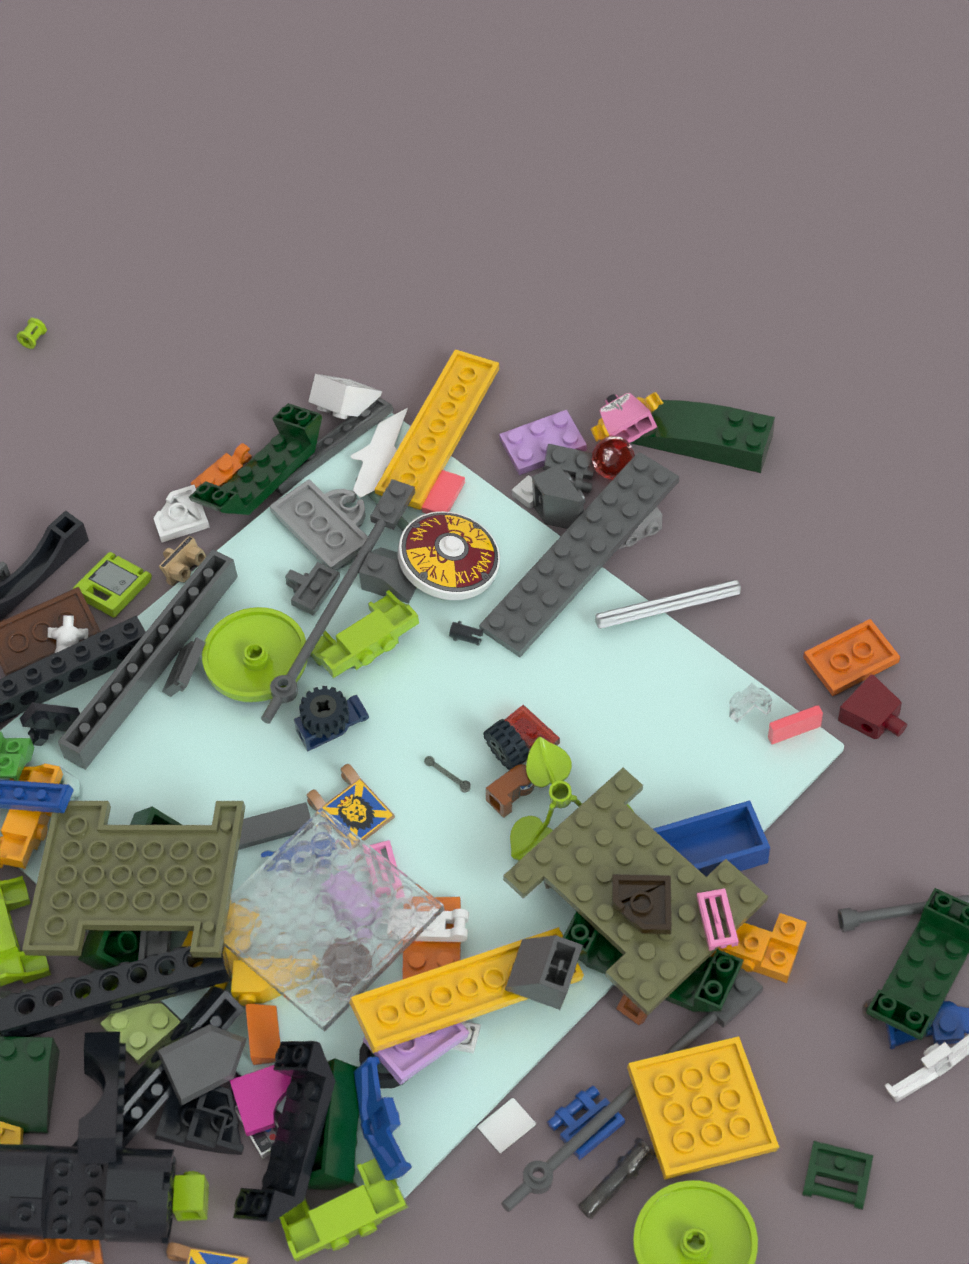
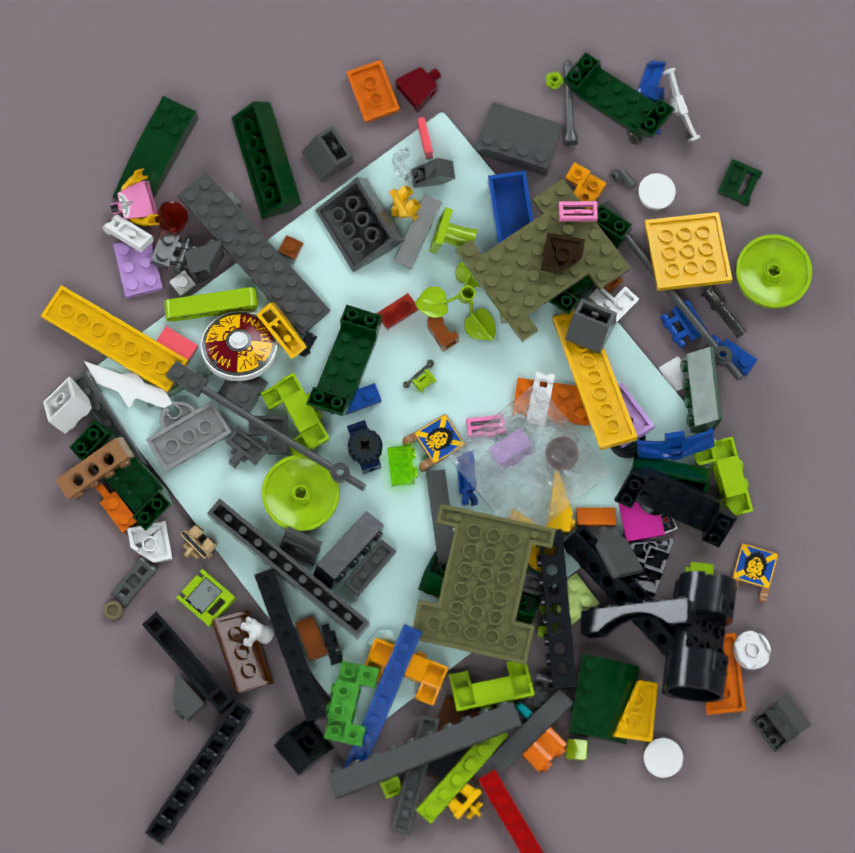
camera: 85 degrees left, 20 degrees up
(72, 695) = (311, 638): none -> dark orange slope
(91, 493) = (113, 610): none -> dark tan tile
(128, 506) = (134, 581): none -> dark grey plate
(163, 755) = (370, 567): none -> dark grey plate
(180, 720) = (348, 550): none -> wedge
(264, 433) = (69, 481): none -> medium nougat brick
(312, 772) = (401, 465): none -> clear neon green bracket
(345, 615) = (279, 422): none -> dark grey plate
(397, 704) = (365, 398): none -> blue plate
(435, 778) = (423, 381): none -> lime bush
(440, 678) = (346, 361): none -> dark green slope
(475, 1153) = (701, 390): none -> slope
(480, 594) = (281, 329): none -> yellow slope
(502, 519) = (210, 304): none -> lime beam
(506, 744) = (410, 327): black wheel -> none
(549, 1207) = (740, 358): none -> blue plate
(580, 418) = (128, 233): none -> white plate
(590, 1012) = (620, 303): none -> white plate
(599, 595) = (290, 247): none -> dark orange plate
(650, 667) = (359, 224): none -> dark grey slope
(655, 740) = (417, 232): none -> light grey tile
(655, 765) = (450, 233): none -> lime plant
(667, 604) = (307, 203): axle -> none
(689, 710) = (402, 205): none -> yellow hips
(720, 551) = (266, 159): none -> dark green slope
(744, 742) = (433, 173): none -> dark grey slope
(745, 617) = (327, 154): none -> dark grey slope
(793, 1054) = (656, 191): none -> white tile
(806, 1001) = (622, 176): none -> dark grey arm
(831, 850) = (519, 138): none -> dark grey slope
(928, 881) = (550, 83): none -> lime plate

